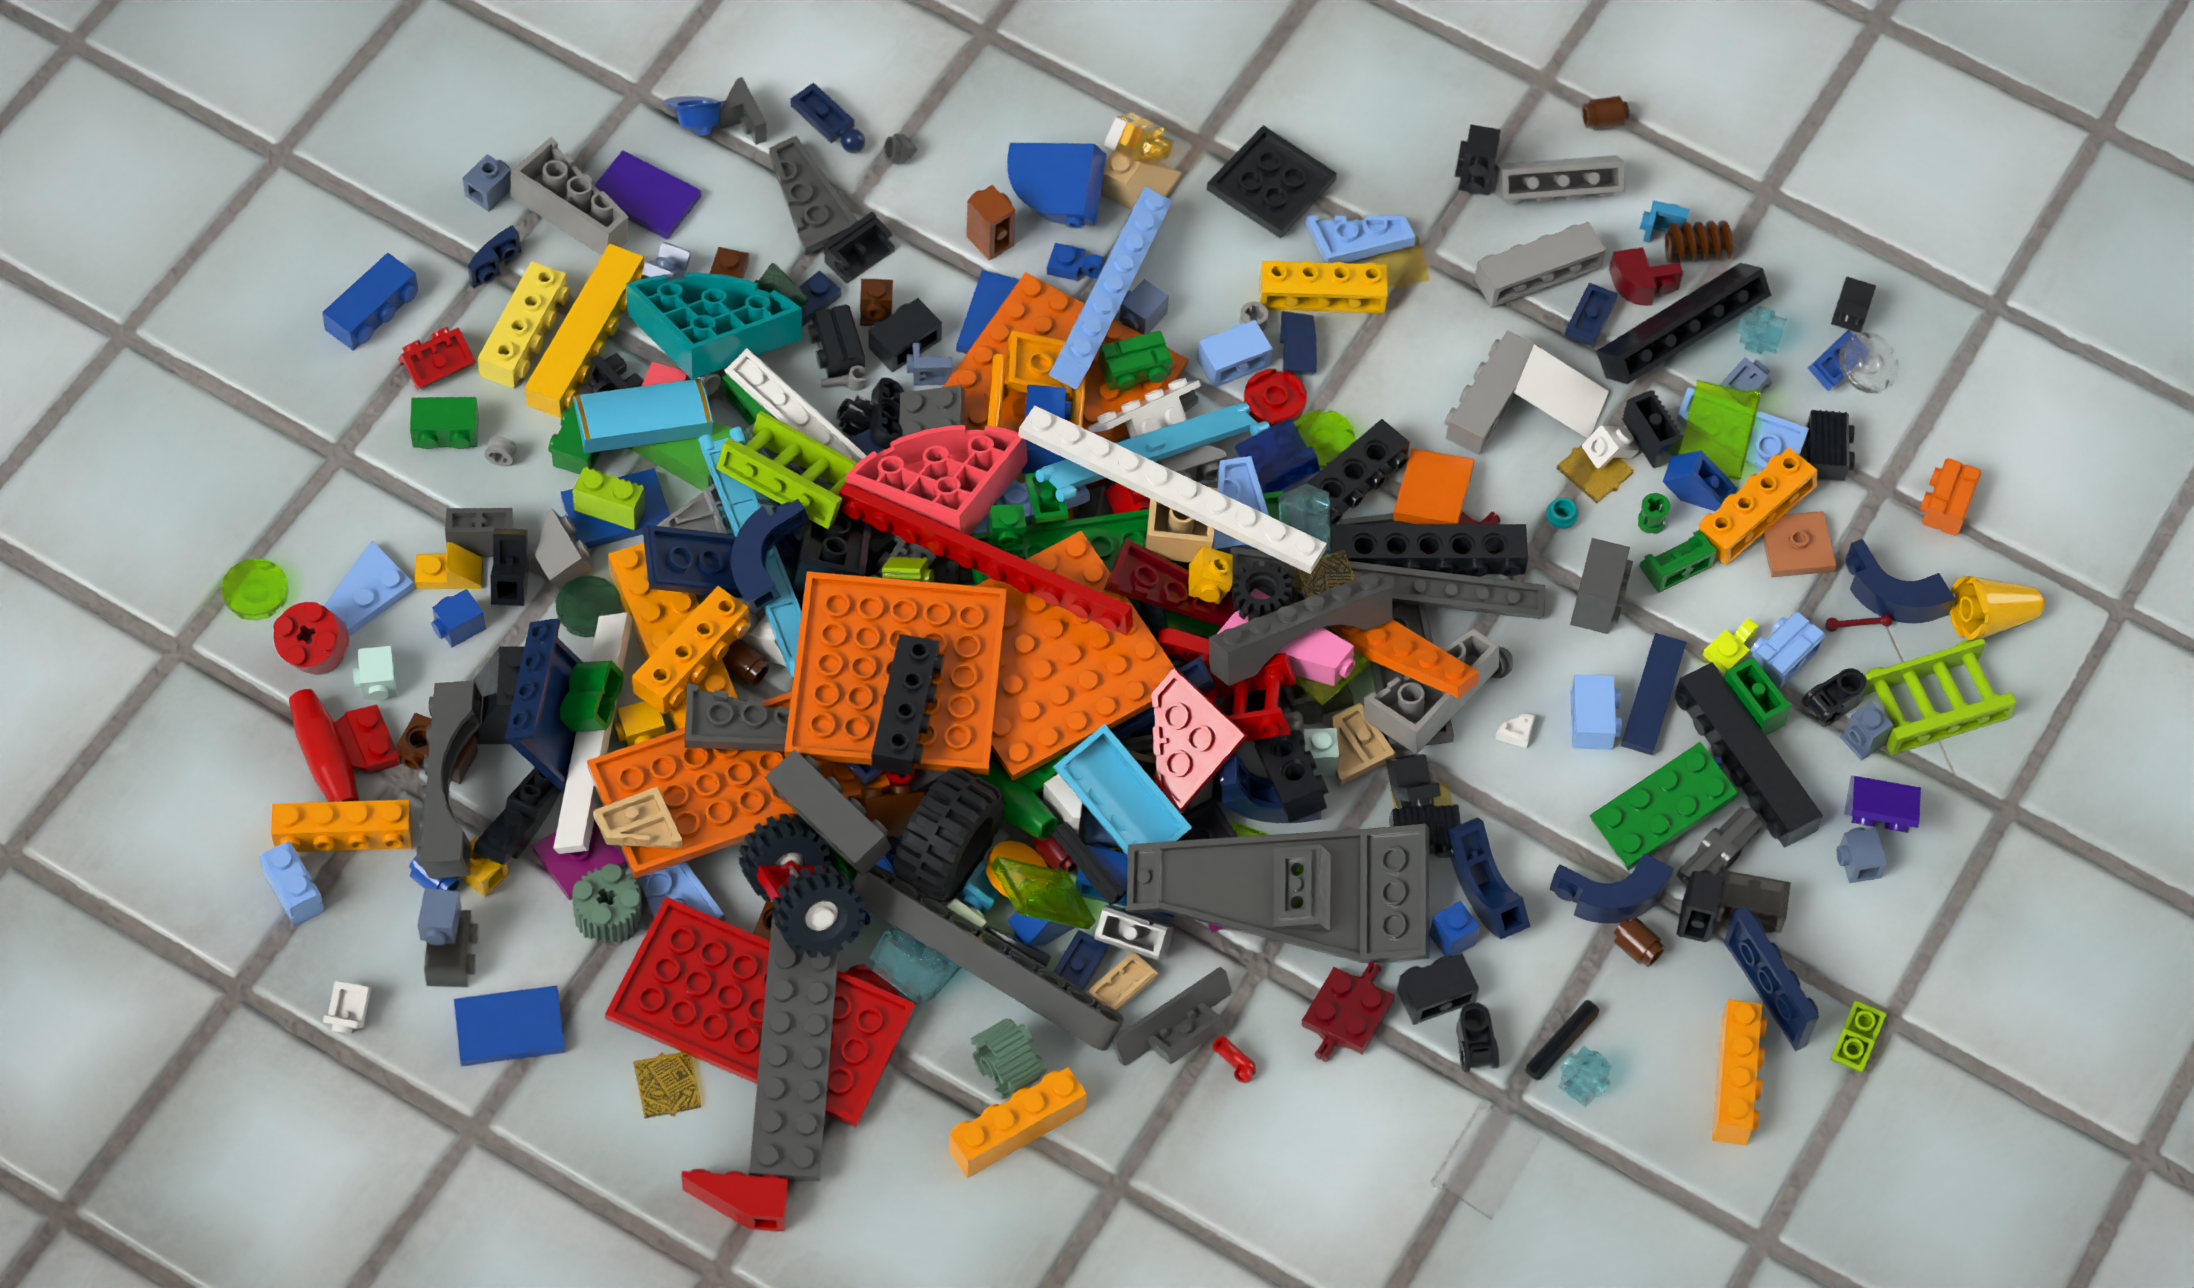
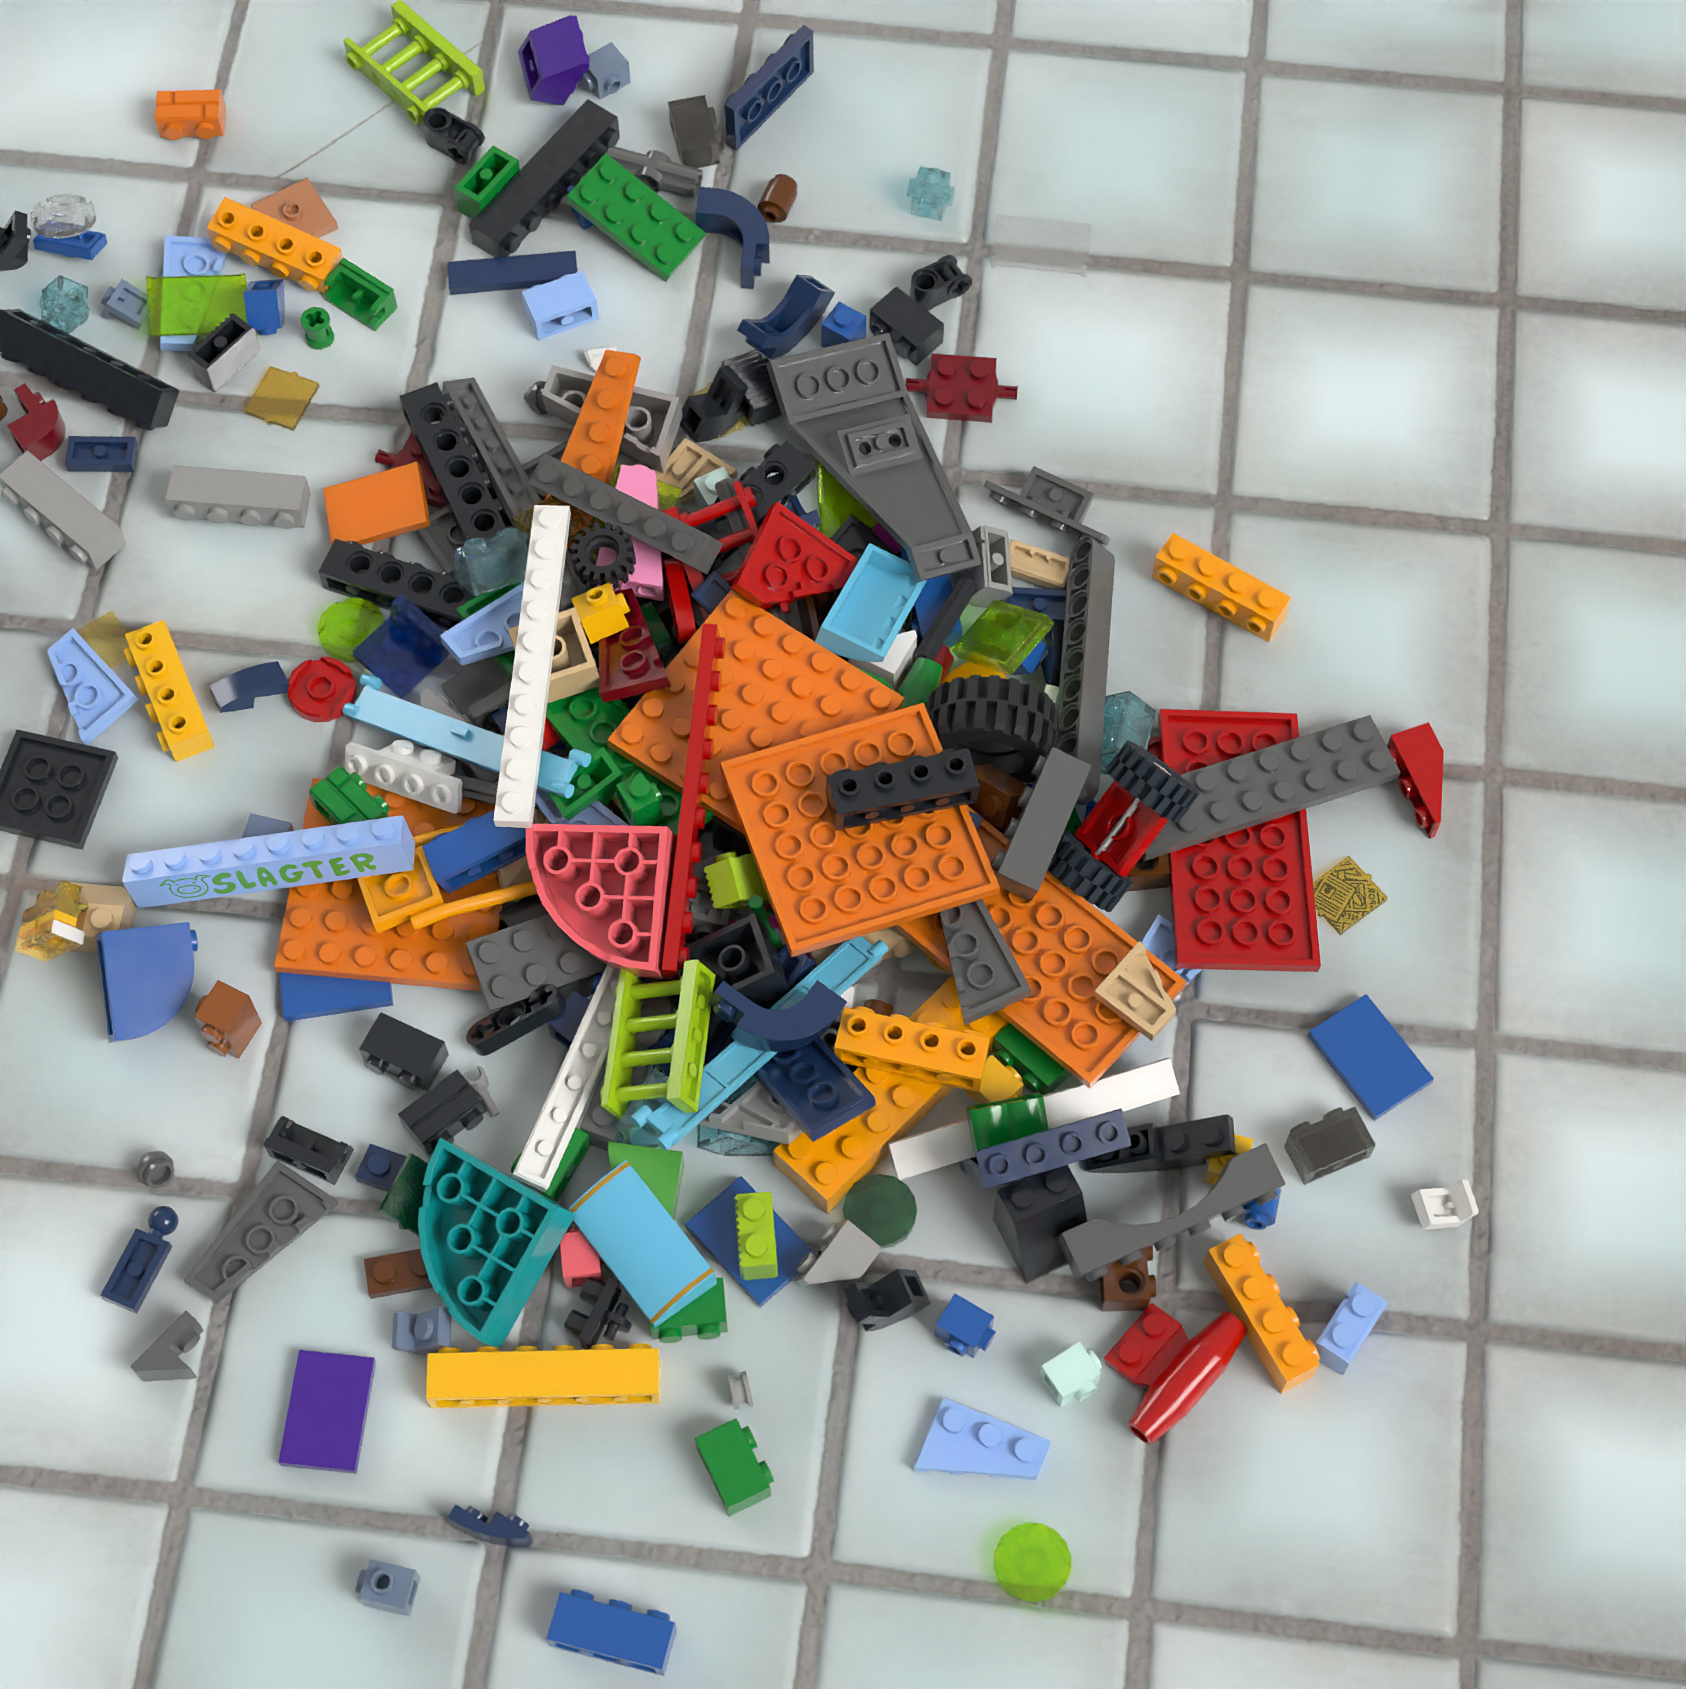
camera: 110 degrees left, 5 degrees up
(294, 630) = (1074, 1453): red brick -> none
(437, 357) = (651, 1523): red bracket -> none
(439, 916) = (1326, 1142): sand blue brick -> none
(449, 571) = (908, 1372): yellow slope -> none
(475, 527) = (850, 1357): dark grey hinge -> none
(523, 325) = (566, 1447): light yellow brick -> none
(567, 198) = (378, 1481): light grey wedge -> none
(570, 867) = (1188, 1073): magenta plate -> none
(607, 904) = (1212, 1004): sand green brick -> none
(696, 112) = (189, 1403): blue piece -> none
(854, 415) = (530, 1051): black gear -> none
(875, 300) = (375, 1096): reddish brown brick -> none
(928, 370) = (439, 1018): sand blue bracket -> none
(1007, 1057) = (1171, 612): sand green brick -> none
(1071, 261) = (236, 938): blue plate -> none
(1234, 353) = (288, 738): light blue brick -> none
(1236, 1058) = (1059, 444): red arm -> none
(1255, 308) = (240, 746): light grey bush -> none
(1561, 392) = (211, 441): white sticker -> none
(1562, 1040) = (900, 226): black axle -> none
(1564, 506) = (348, 396): teal plate -> none
(1602, 586) = (427, 332): dark grey brick -> none
(1608, 443) = (255, 385): white bracket -> none
(1700, 906) = (725, 155): black brick -> none
(1731, 649) = (436, 232): neon yellow plate -> none
(1737, 1072) = (865, 92): light orange brick -> none
(1788, 648) = (419, 184): light blue brick -> none
(1829, 444) = (174, 216): black brick -> none
(1832, 623) = (368, 166): dark red hinge -> none
(1858, 1036) = (773, 31): lime slope -> none
(1867, 731) = (477, 102): sand blue brick -> none
(1903, 600) = (322, 136): dark blue arch -> none
(1992, 606) = (305, 48): yellow cone -> none

